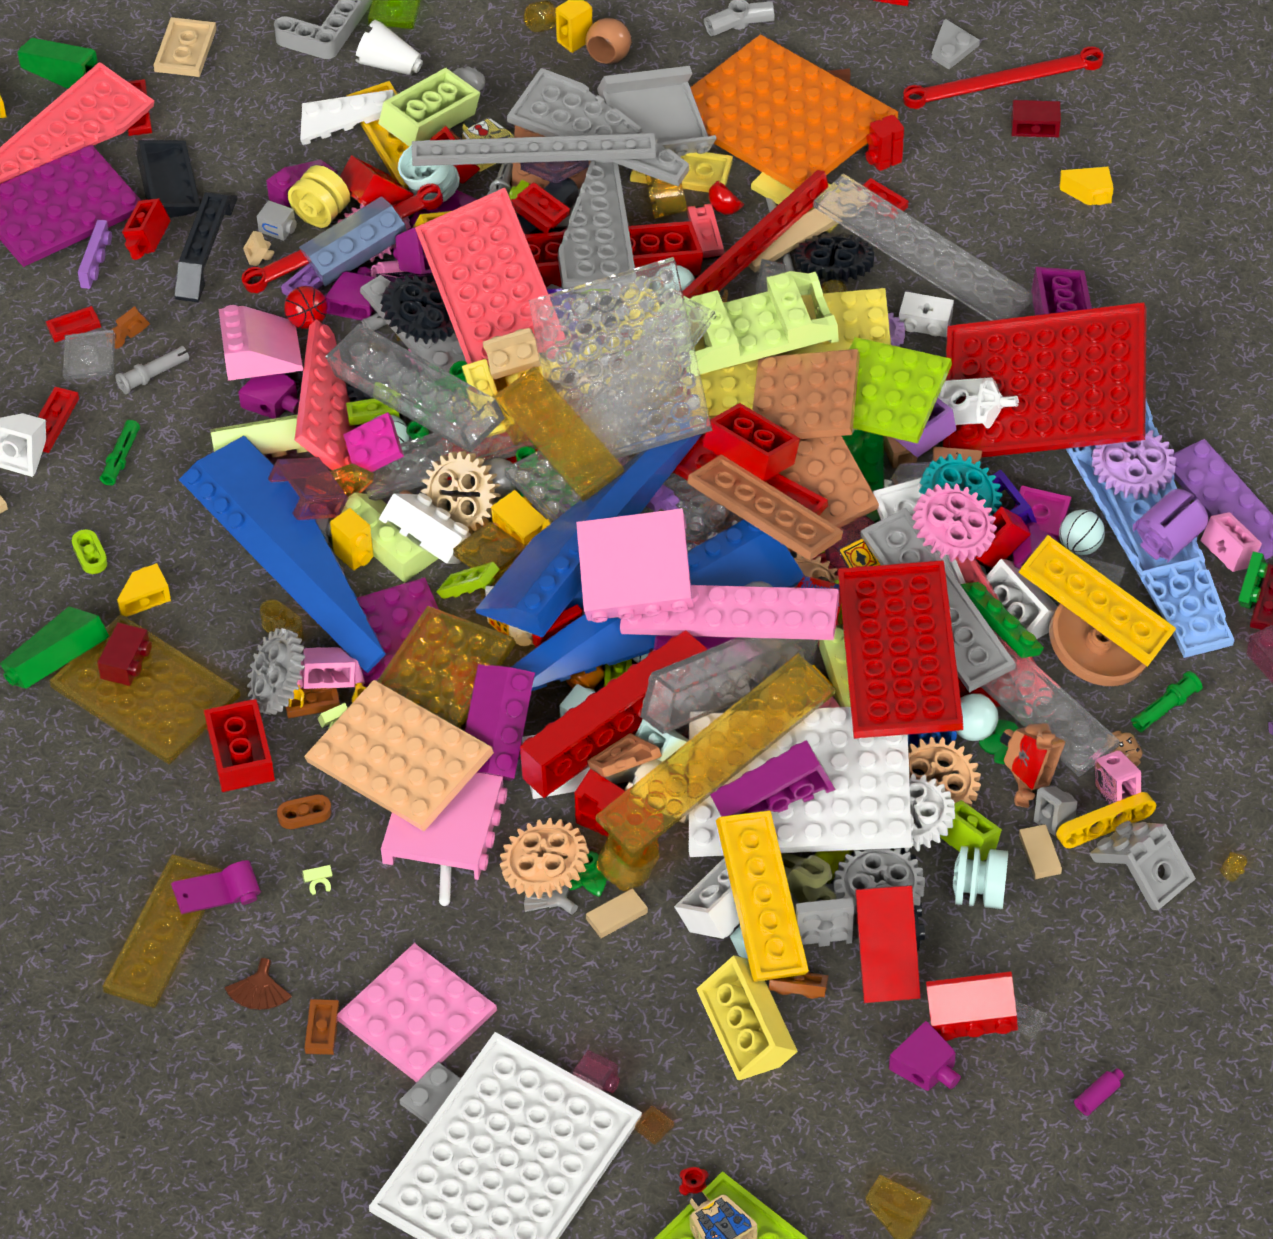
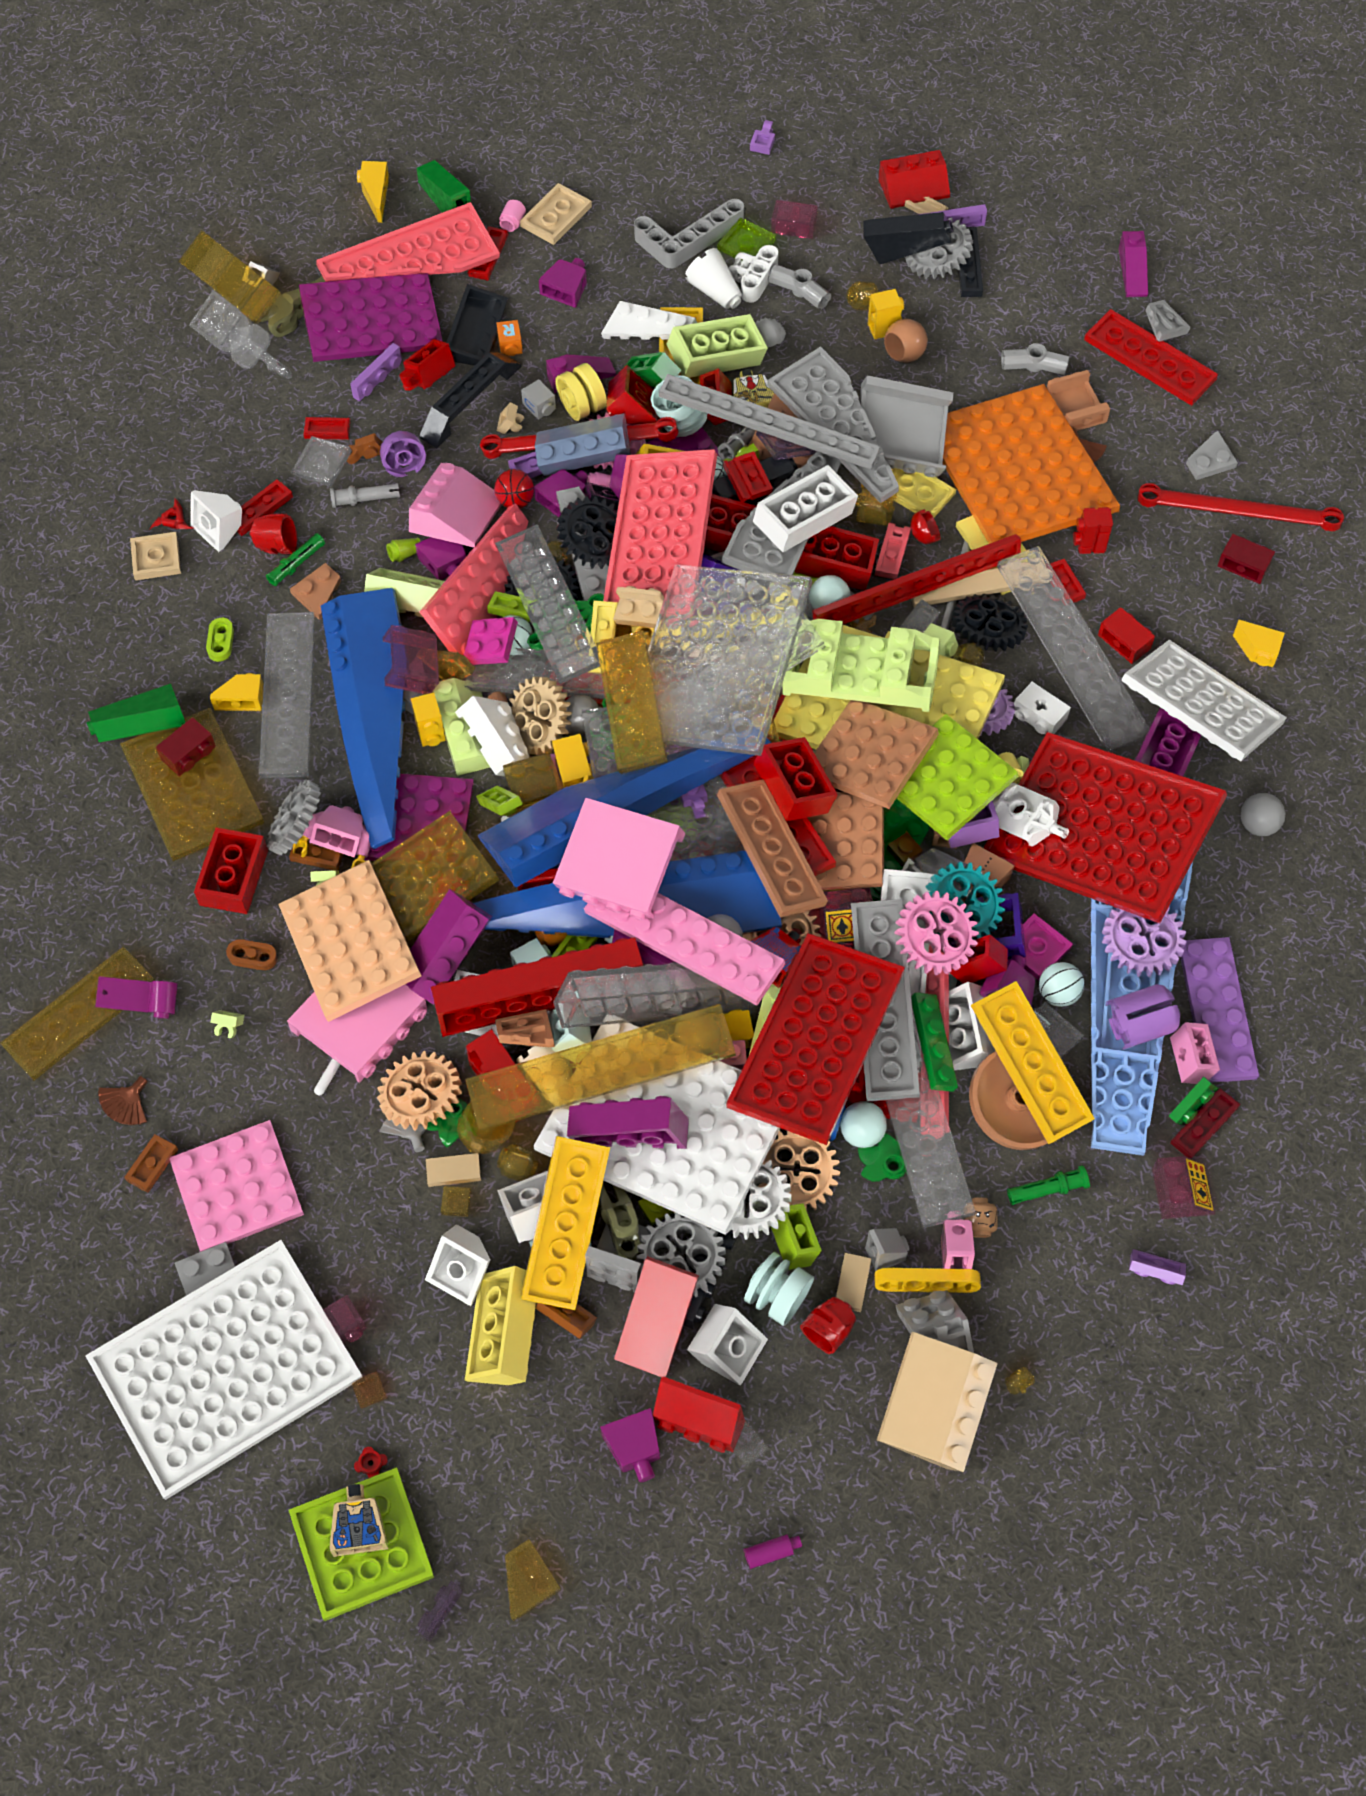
camera: 25 degrees right, 10 degrees up
(83, 435) = (274, 534): none -> red helmet
(141, 63) = (511, 215): none -> bright pink brick
(158, 472) = (317, 589): none -> nougat wing
(168, 312) = (402, 449): none -> medium lavender cylinder
(191, 575) = (287, 695): none -> clear plate
(211, 175) = (509, 337): none -> orange brick
(223, 403) = (402, 549): none -> lime cone
(234, 105) = (564, 282): none -> magenta torso
(278, 616) = (332, 769): clear yellow beam -> none
(378, 150) = (653, 367): none -> green slope
(420, 30) = (754, 271): none -> white piece
(473, 27) = (801, 285): none -> light grey piece
(616, 212) = (805, 508): none -> white brick
(637, 936) = (455, 1201): none -> clear yellow plate
(675, 879) = (517, 1162): none -> clear yellow head
(676, 985) = (459, 1264): none -> white slope
(801, 37) = (1078, 400): none -> nougat panel
(875, 475) = (904, 848): none -> reddish brown plate
(959, 943) = (727, 1343): none -> white slope
(965, 223) = (1126, 635): none -> red brick
(1032, 758) = (890, 1190): nougat torso -> none
(1046, 882) = (829, 1324): none -> red helmet
(1069, 248) = (1204, 700): none -> white plate
(1176, 325) = (1262, 814): none -> light grey piece
(1177, 904) = (937, 1402): none -> tan slope

